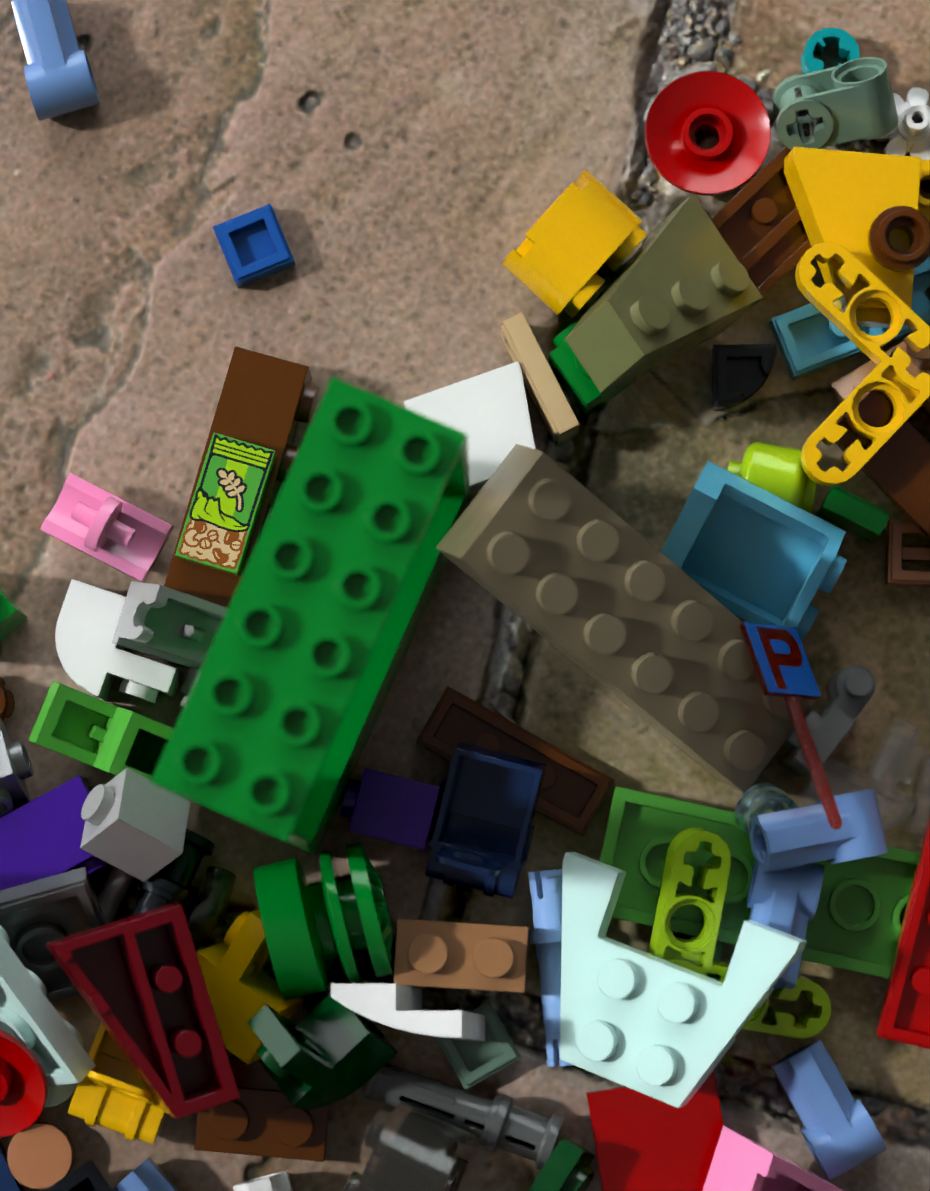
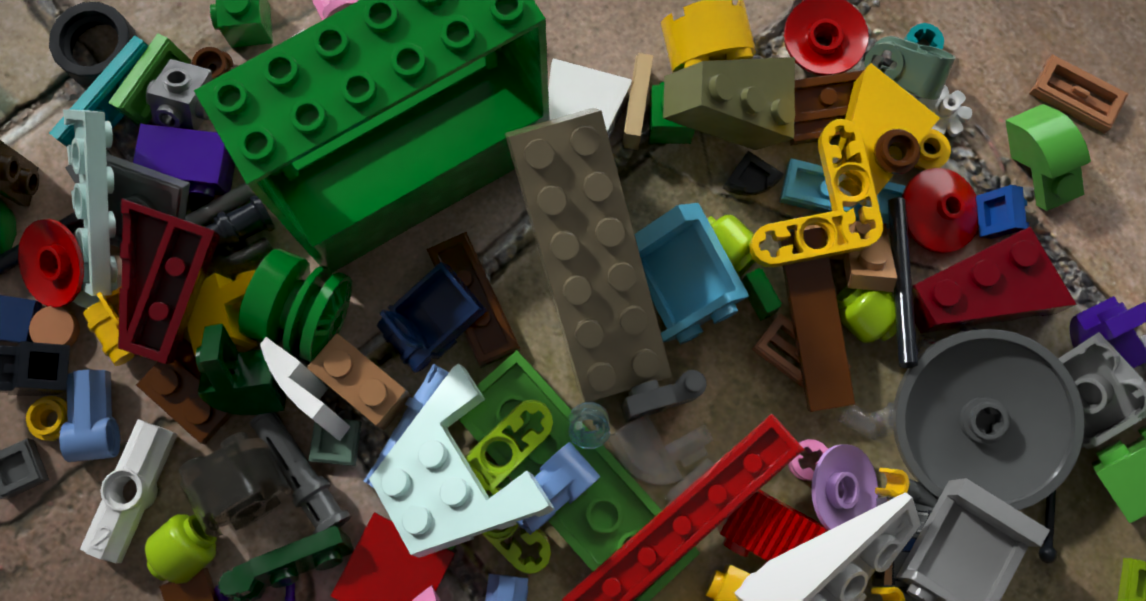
camera: 30 degrees right, 5 degrees down
(134, 824) = (223, 181): light grey brick -> none
(391, 808) = (382, 273): dark purple brick -> none
(787, 674) = (657, 344): clear red piece -> none
(804, 834) = (620, 458): medium blue piece -> none

